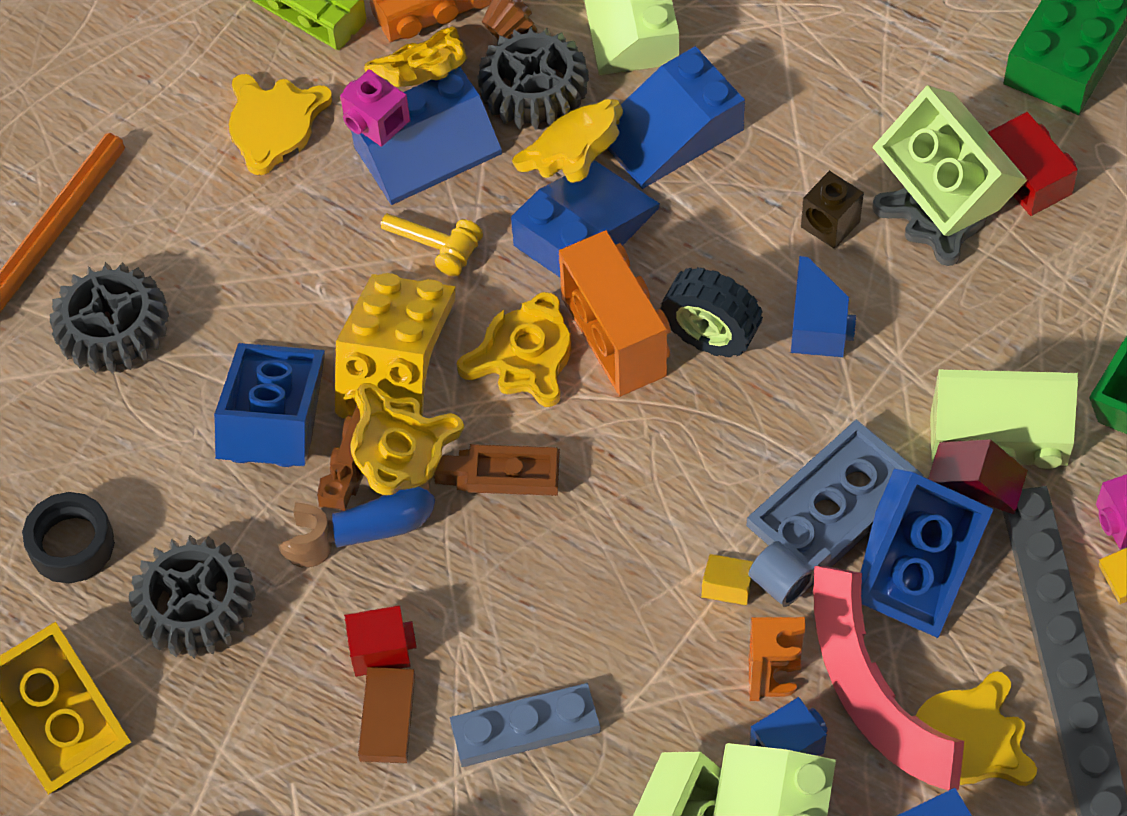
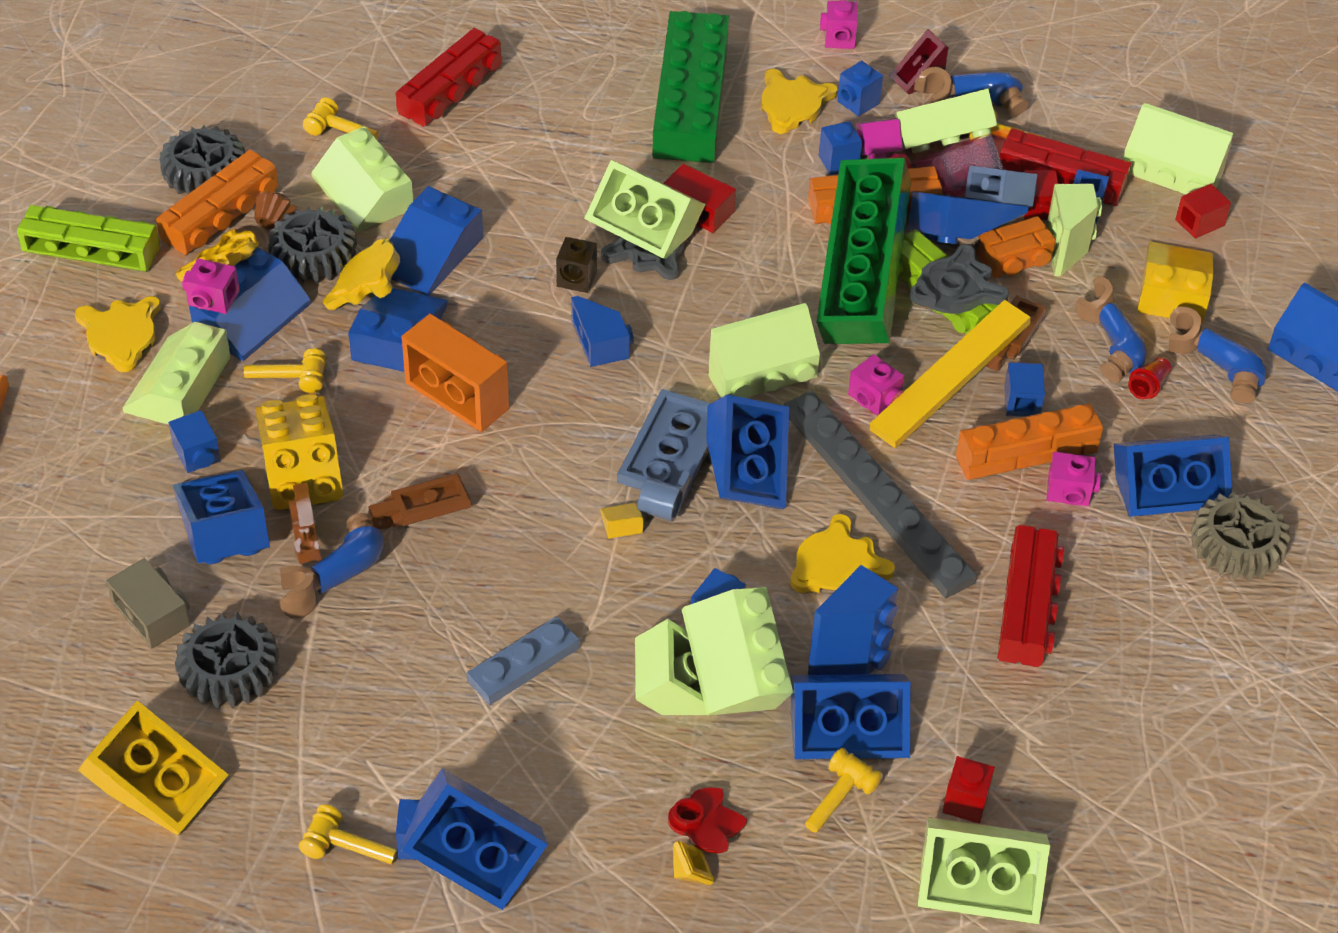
camera: 30 degrees left, 10 degrees down
(60, 508) = (109, 677): black tyre -> none
(84, 329) = (52, 500): dark grey gear -> none
(141, 488) = (149, 602): none -> dark tan brick
(283, 297) = (194, 441): none -> blue brick
(309, 205) = (180, 374): none -> yellowish green slope
(379, 639) = (388, 640): red brick -> none
(386, 715) = (417, 689): dark orange tile -> none
(396, 443) = (339, 502): yellow tile -> none
(524, 349) = (396, 421): yellow tile -> none
(712, 312) = (530, 347): black wheel -> none
(773, 648) = (681, 547): orange hinge -> none
(865, 692) = (755, 553): coral tile -> none
(979, 472) = (768, 385): dark red slope -> none

